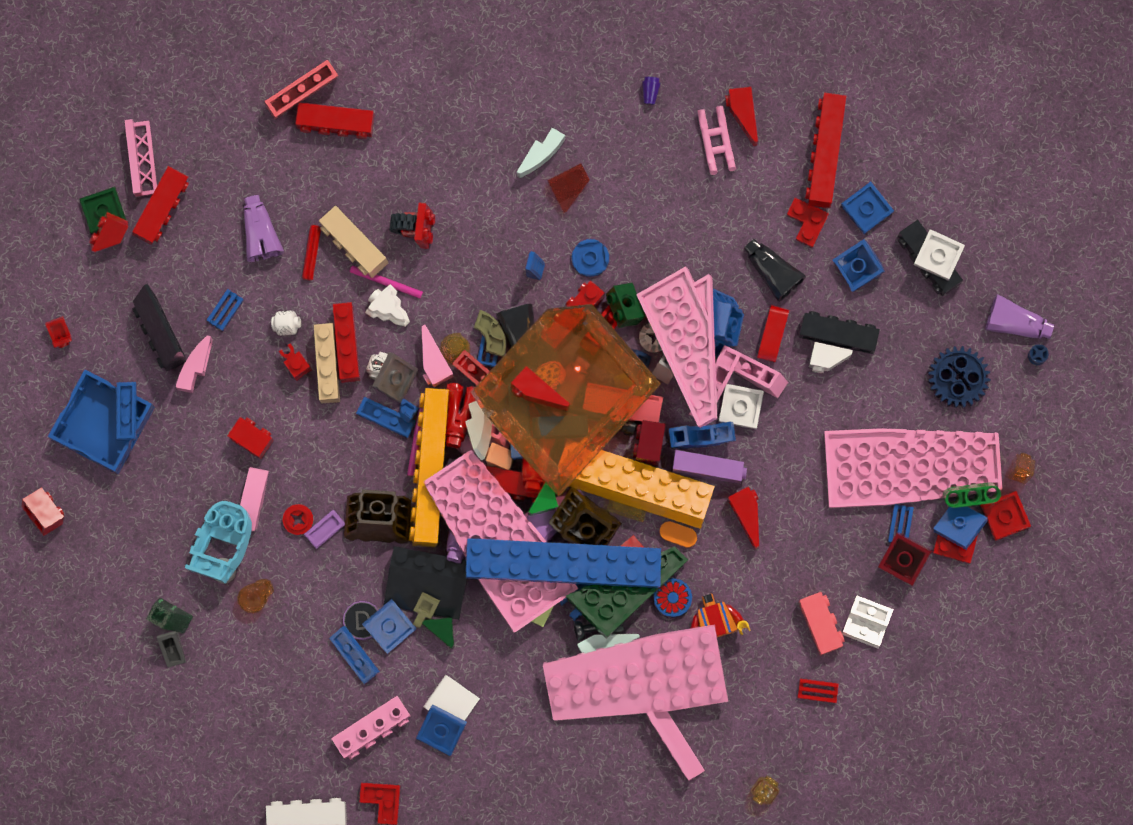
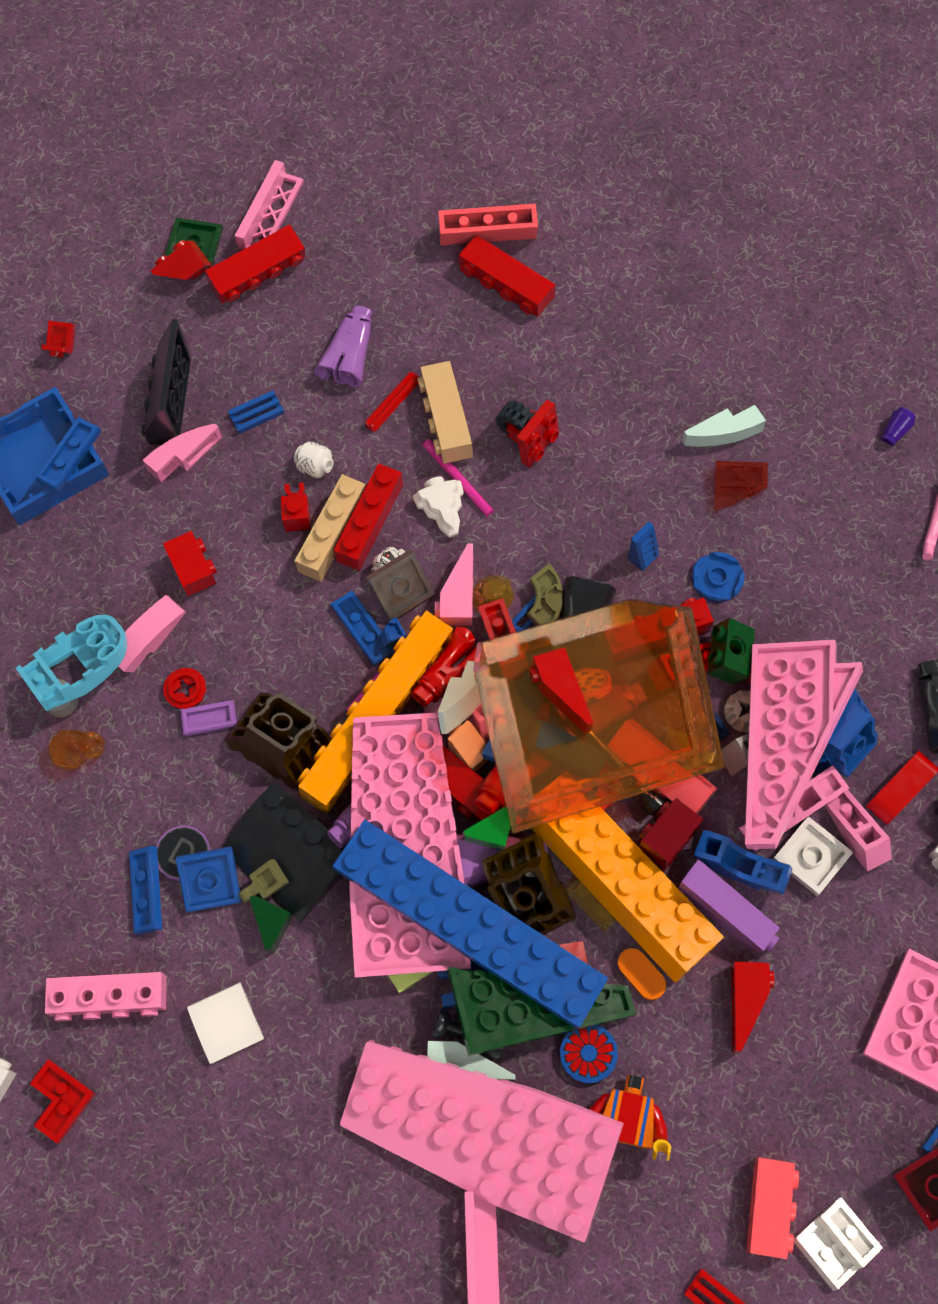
camera: 30 degrees right, 10 degrees down
(441, 730) = (189, 1051): blue plate -> none

